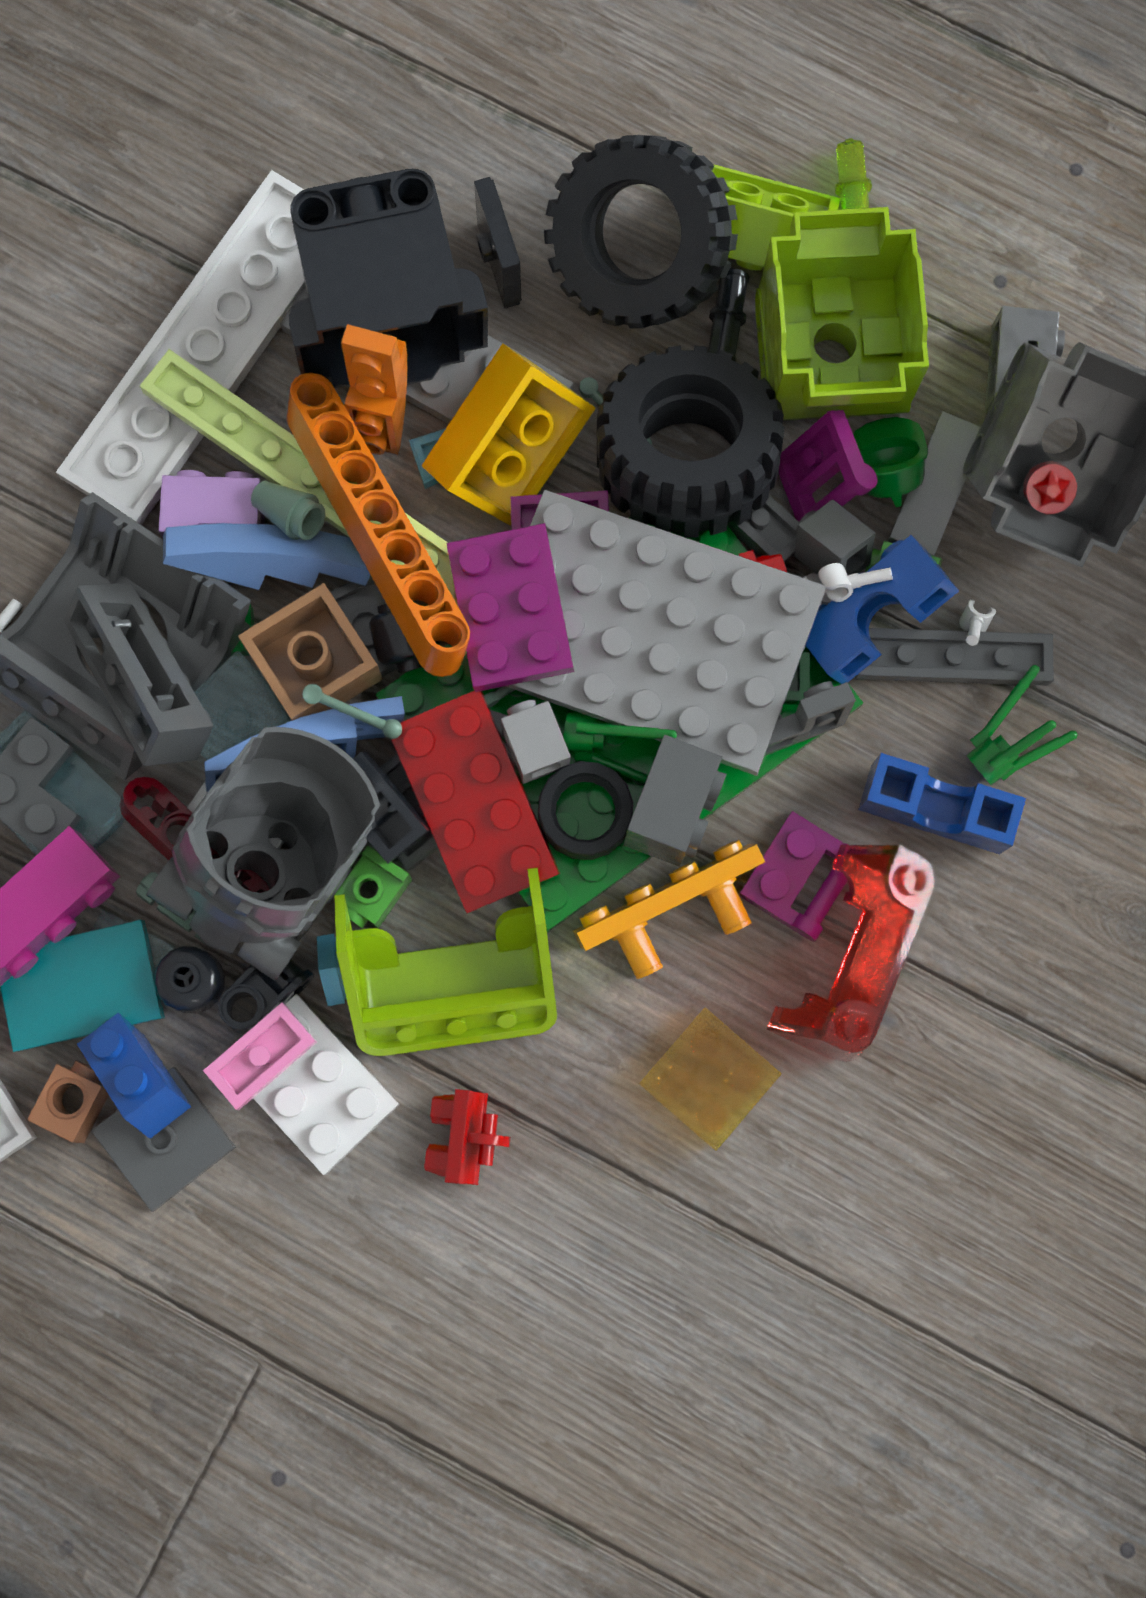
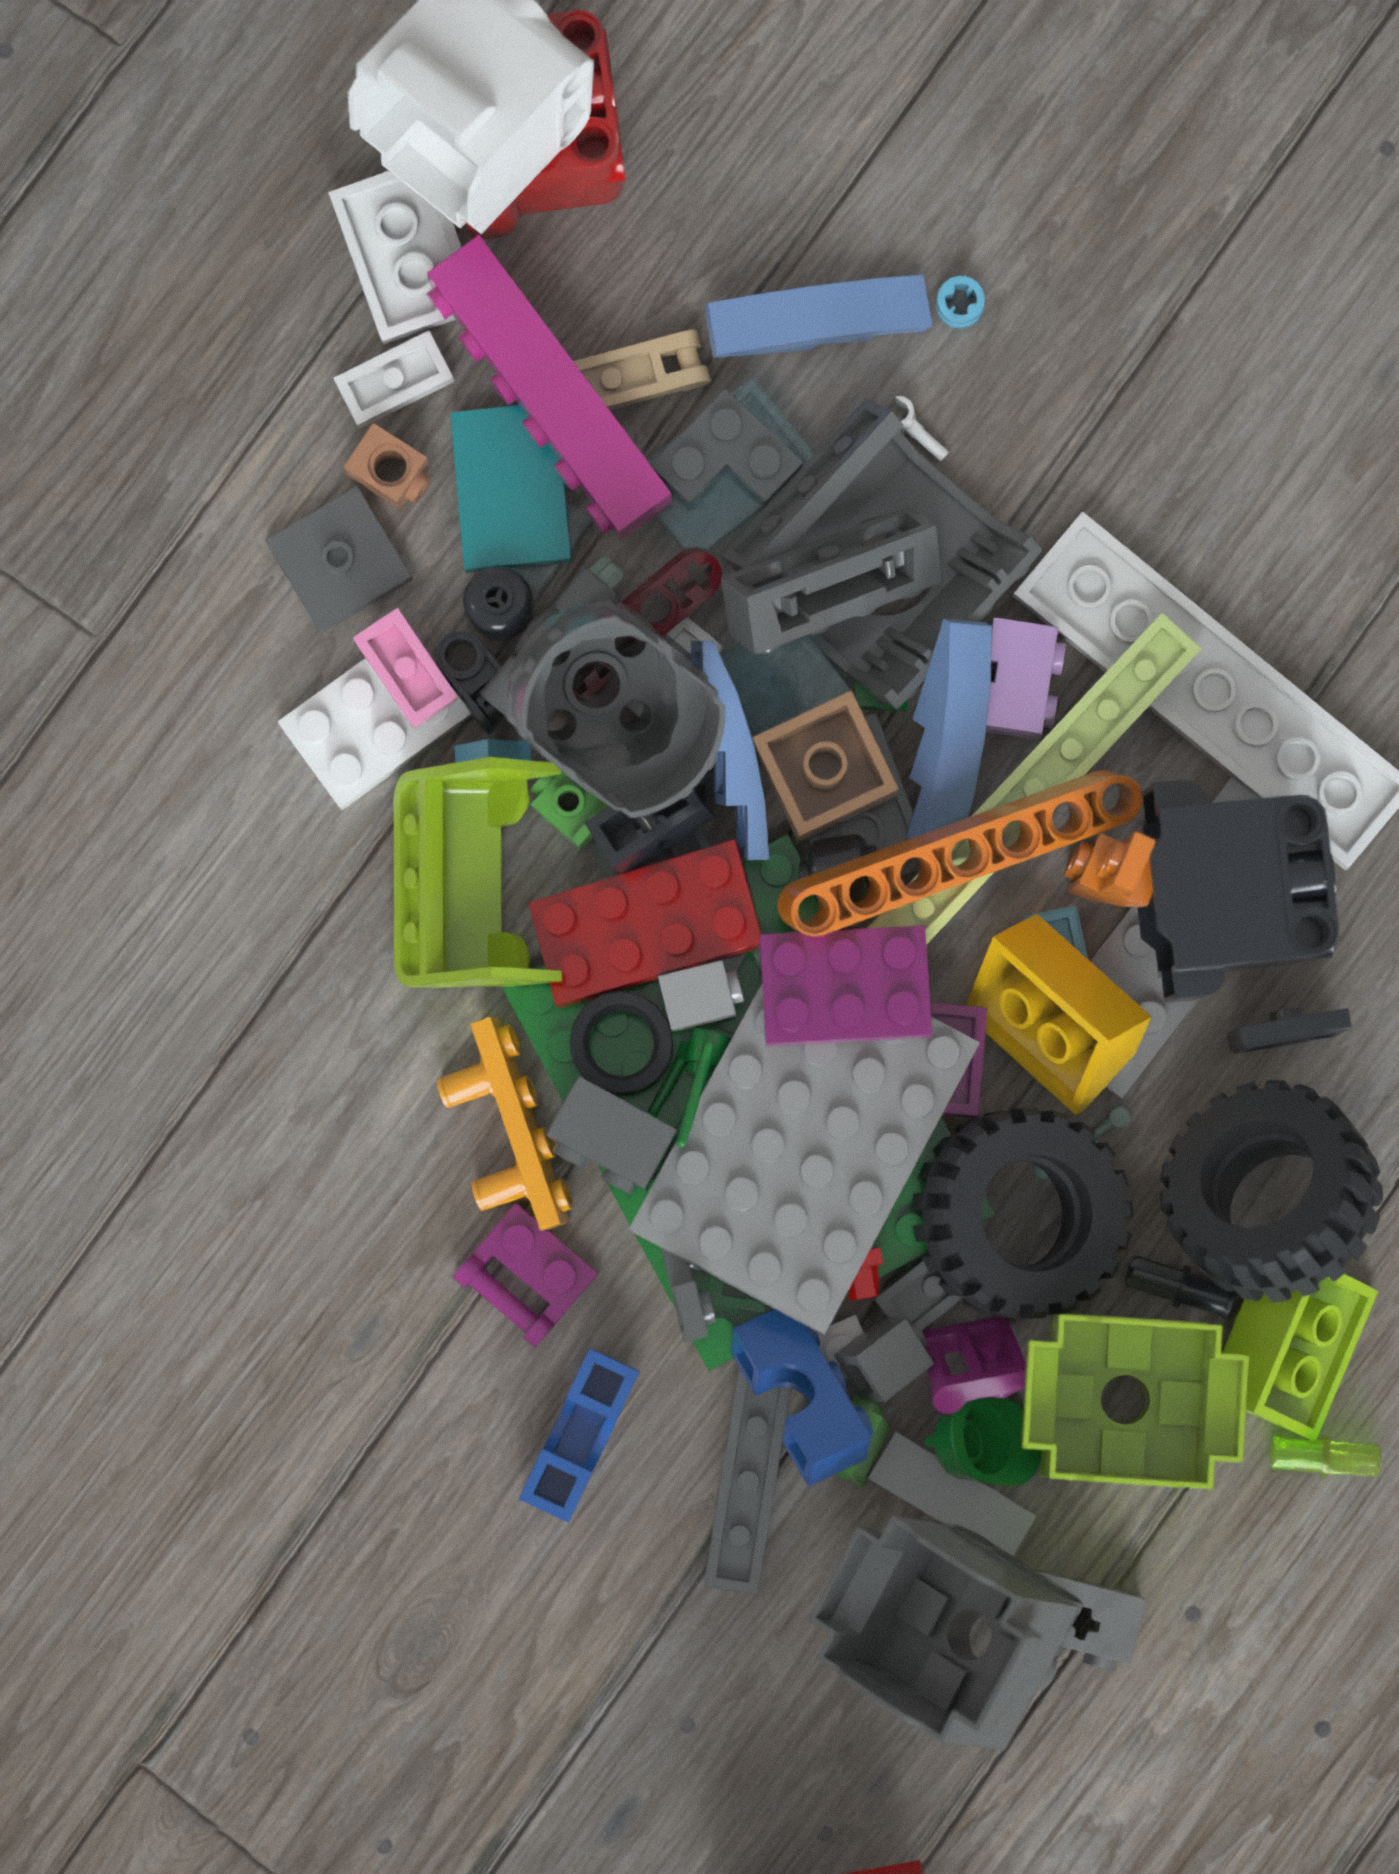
camera: 105 degrees right, 5 degrees up
(133, 1075) = (404, 536): blue brick -> none
(289, 509) = (994, 762): sand green cone -> none
(313, 694) = (773, 764): sand green hinge -> none
(470, 1139) = (295, 879): red hips -> none
(710, 1079) = (320, 1141): clear yellow plate -> none
(840, 585) = (827, 1352): white hand -> none
(893, 893) = (355, 1291): clear red windscreen -> none
(975, 622) = (780, 1510): white hand -> none
(996, 757) = (627, 1510): green plant -> none
(1050, 487) = (904, 1599): red tile -> none

